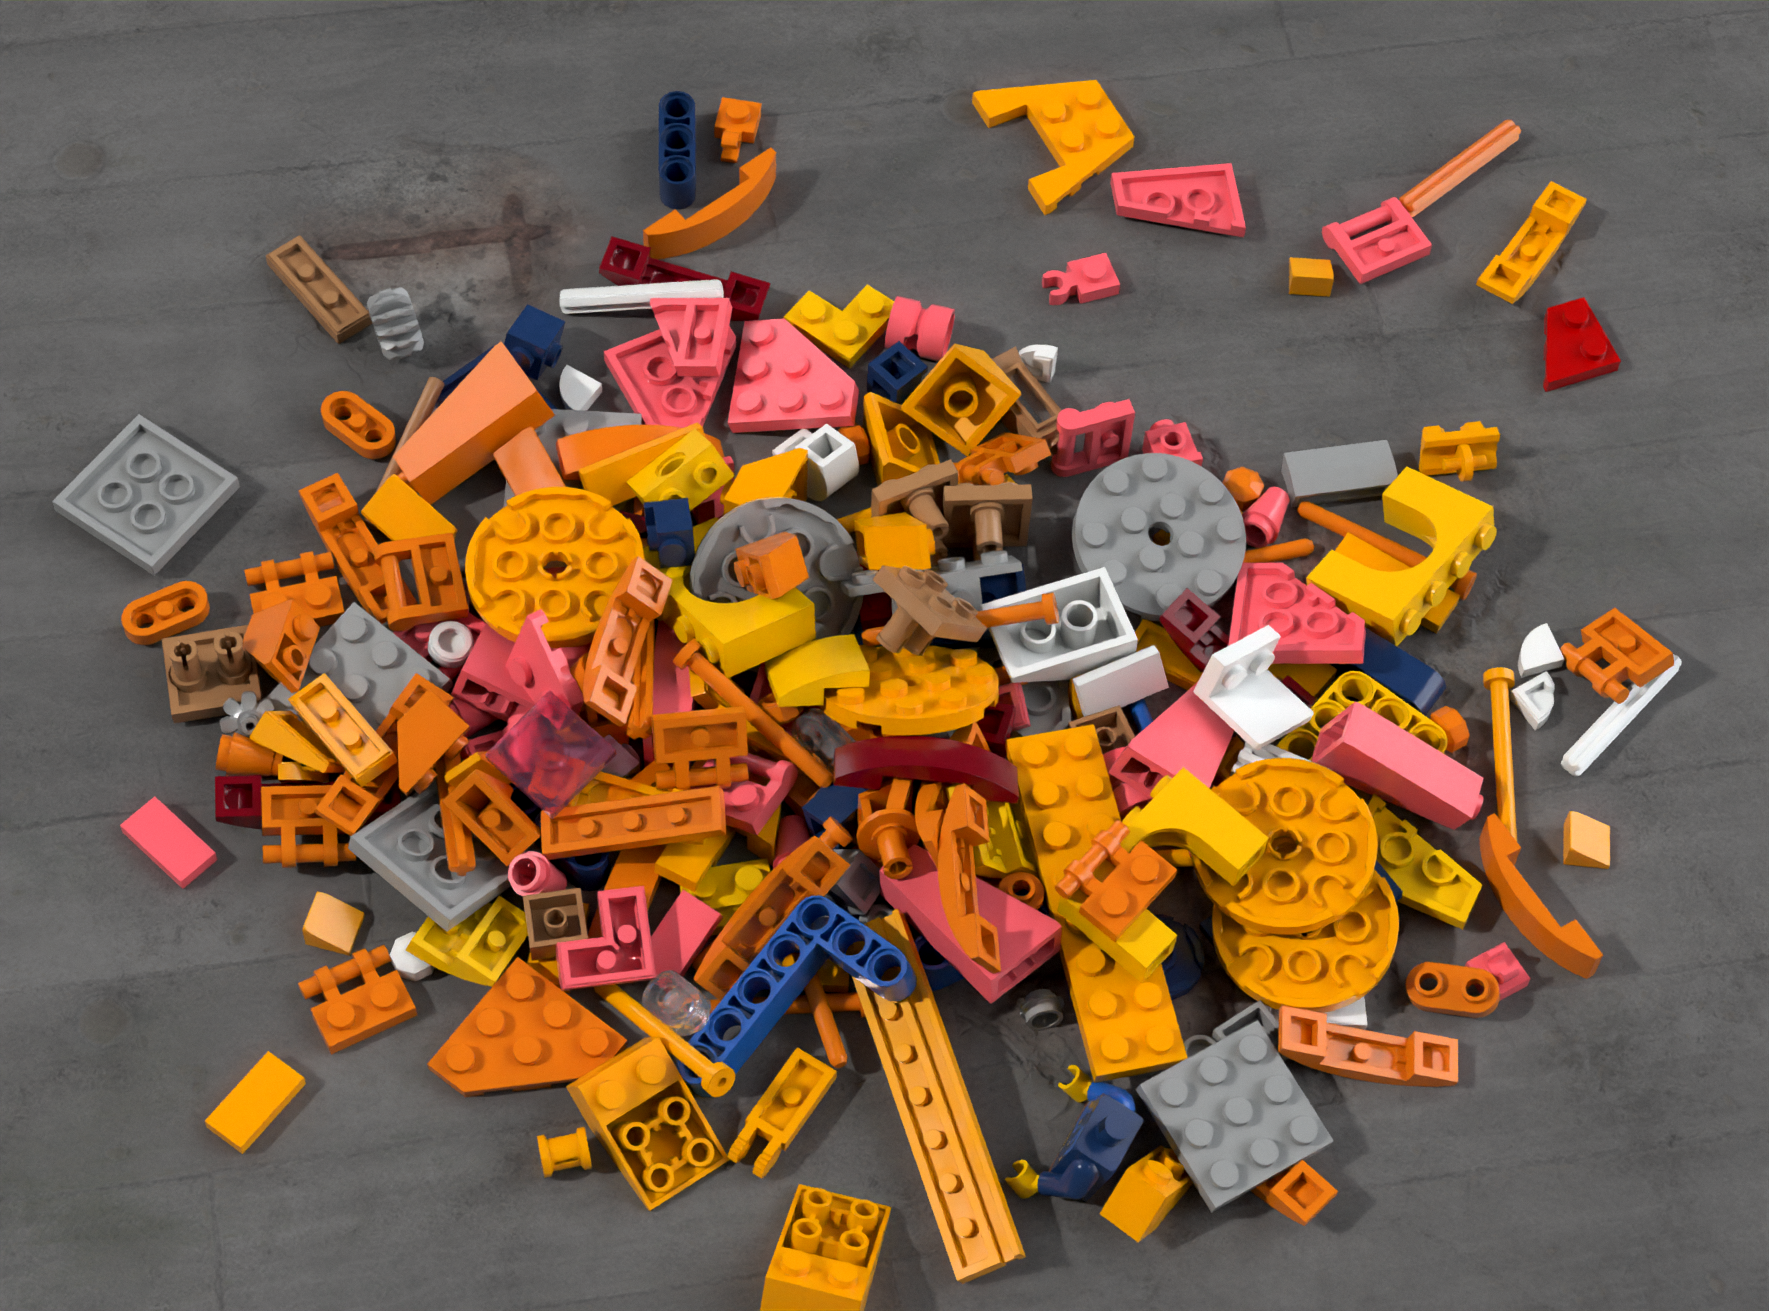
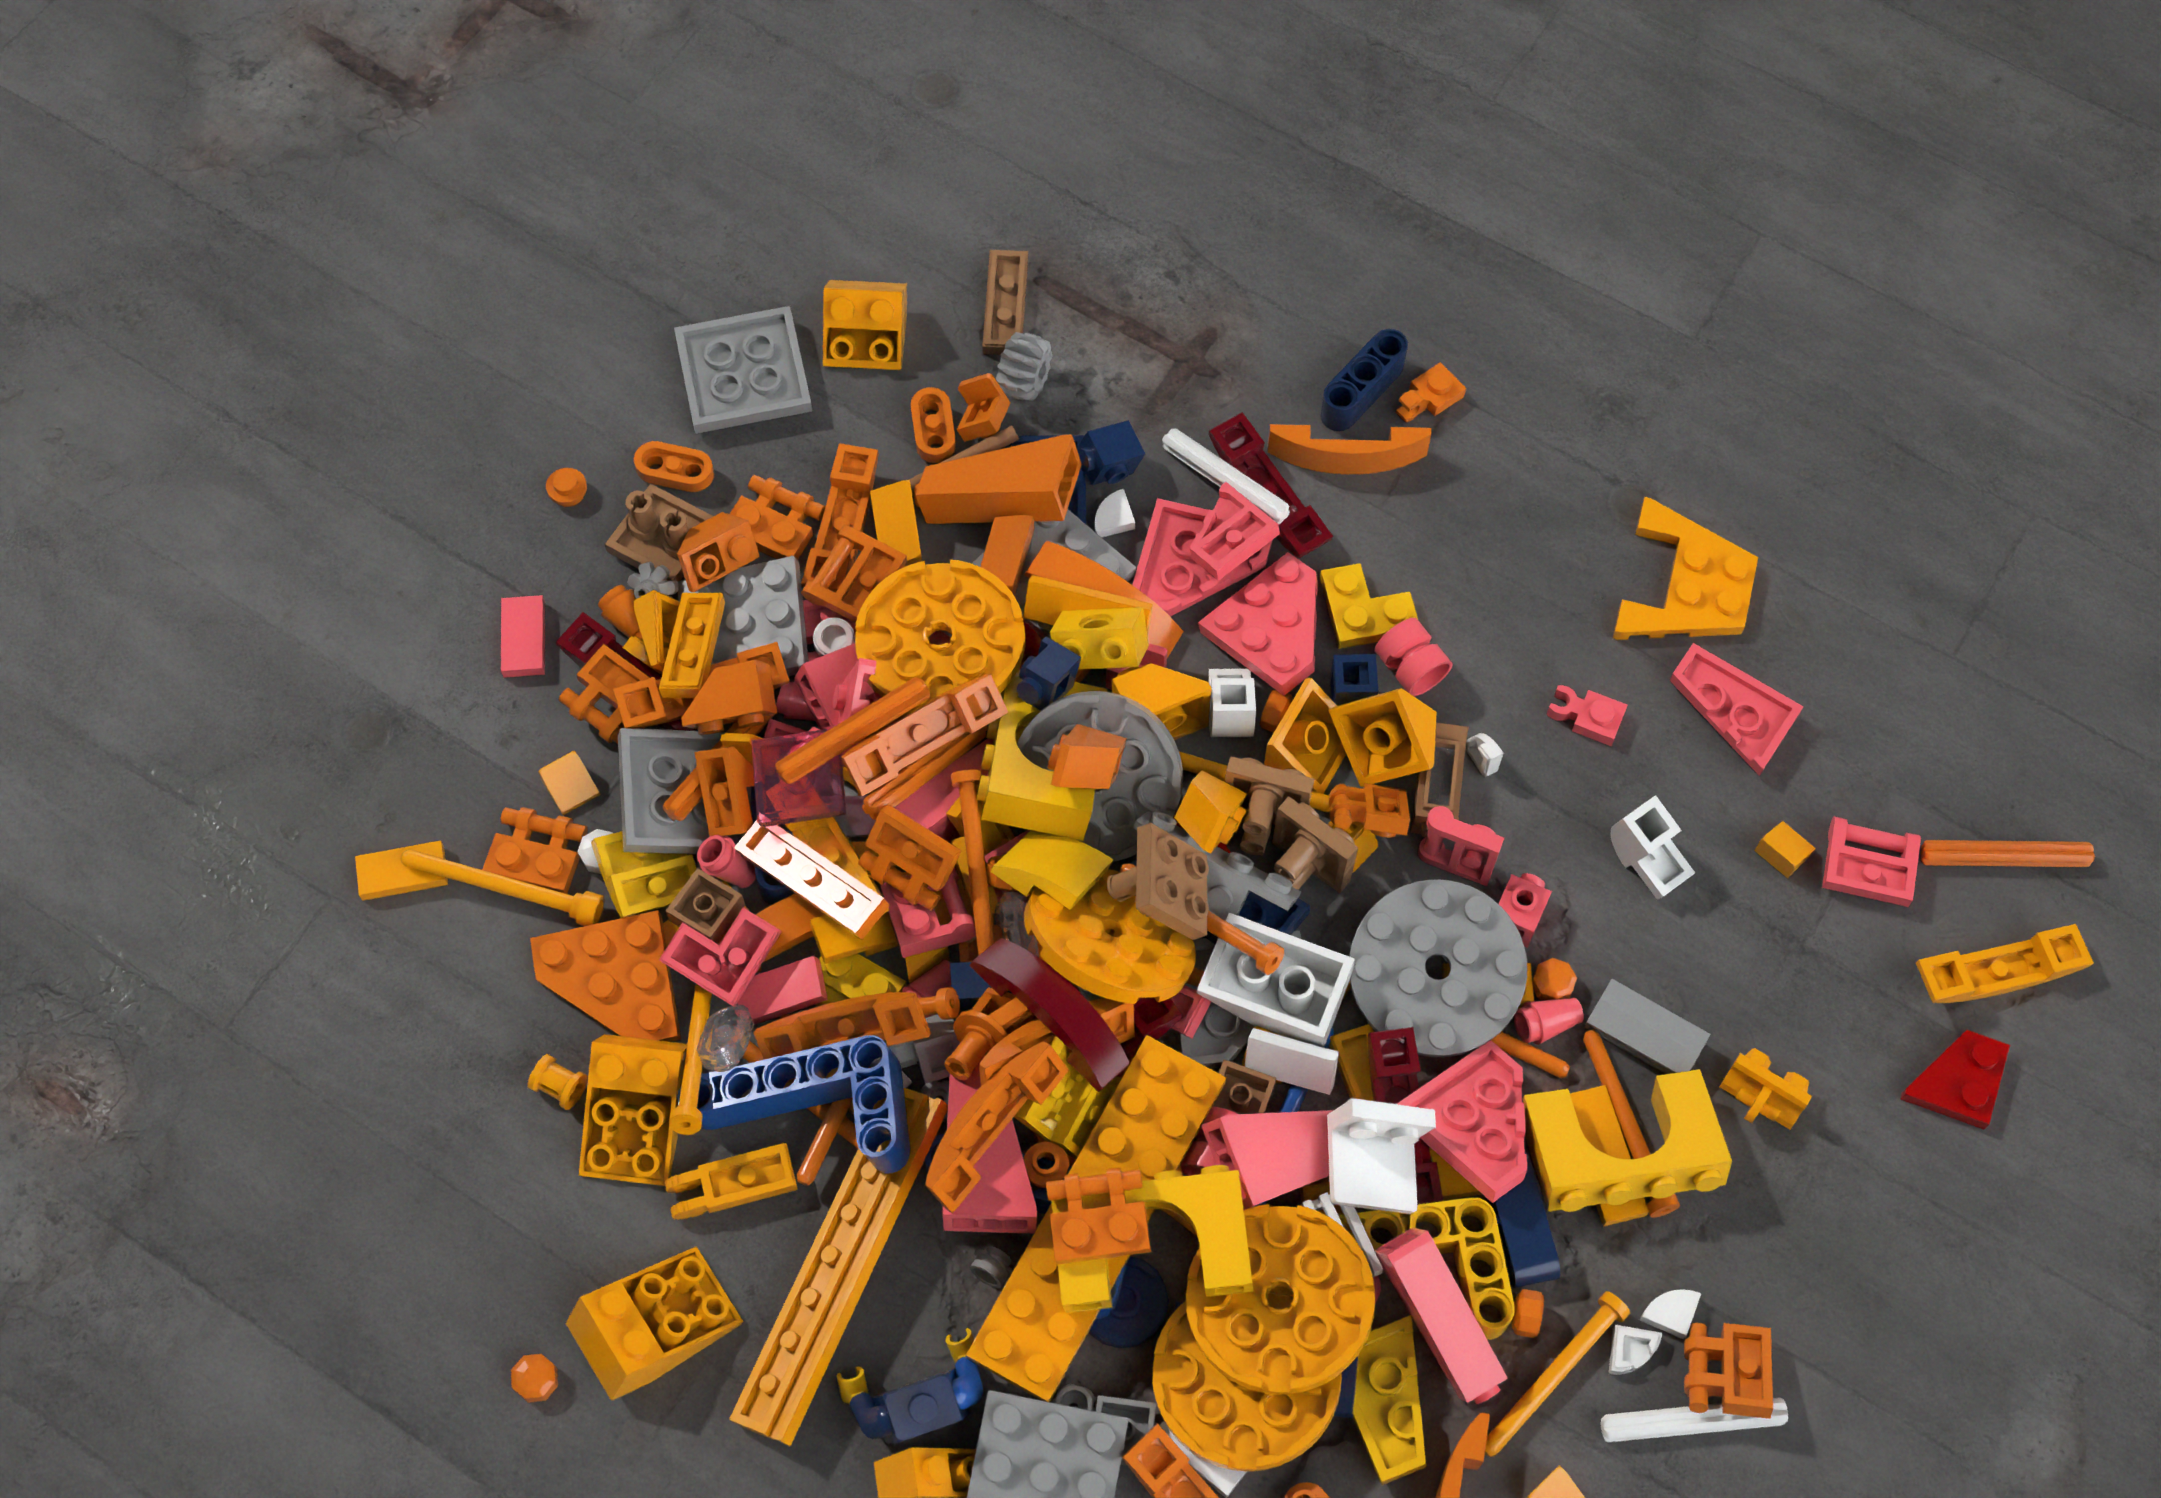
camera: 45 degrees right, 5 degrees up
(83, 697) = (566, 487): none -> orange plate
(219, 385) = (864, 324): none -> light orange slope
(390, 379) = (985, 407): none -> orange bracket
(447, 1007) = (583, 907): none -> light orange piece
(569, 679) = (852, 730): none -> orange axle
(1218, 340) = (1646, 844): none -> white brick

